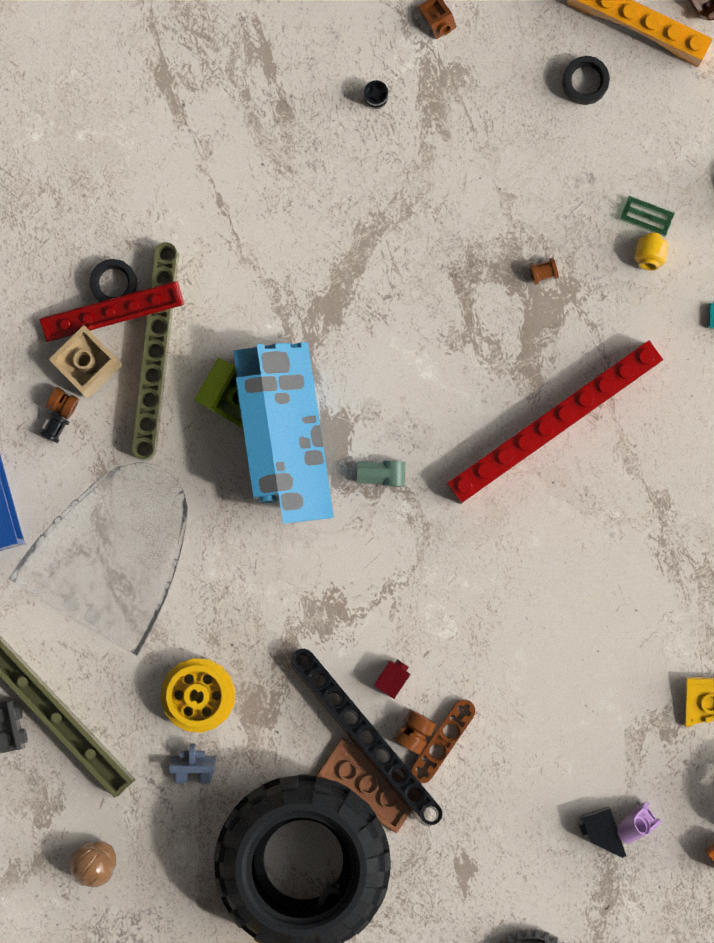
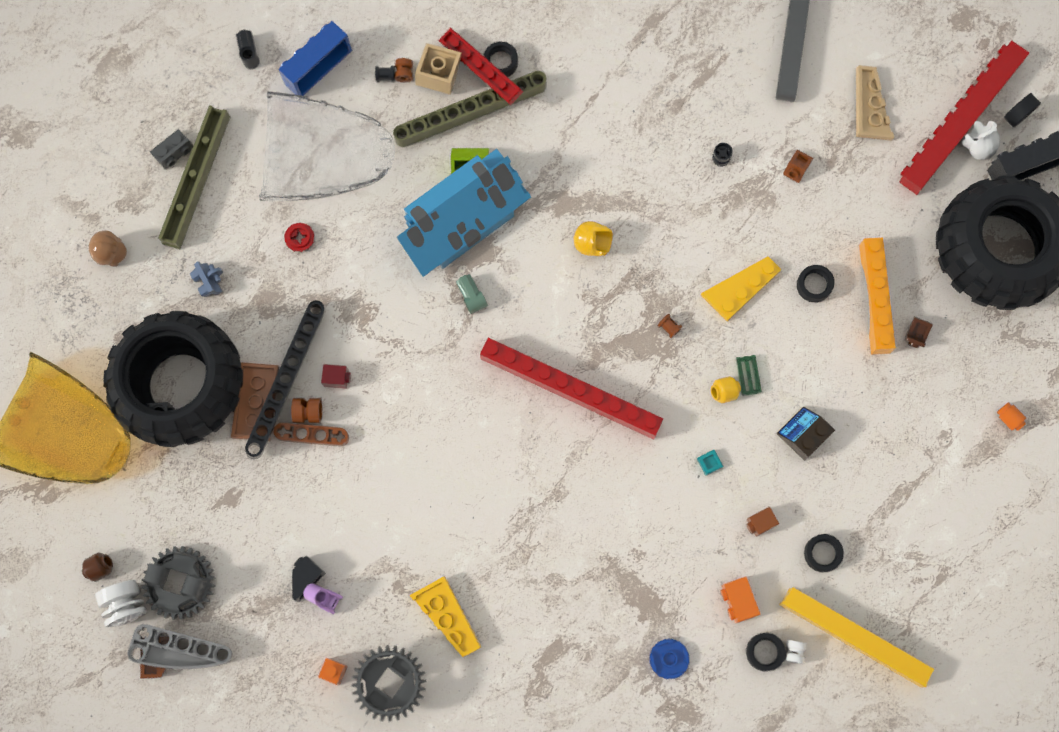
camera: 55 degrees right, 10 degrees down
(190, 639) = (292, 233): none -> red gear
(220, 682) = (249, 241): yellow wheel -> none
(395, 300) = (593, 239): none -> yellow hair
(543, 168) = (740, 288): none -> yellow wing

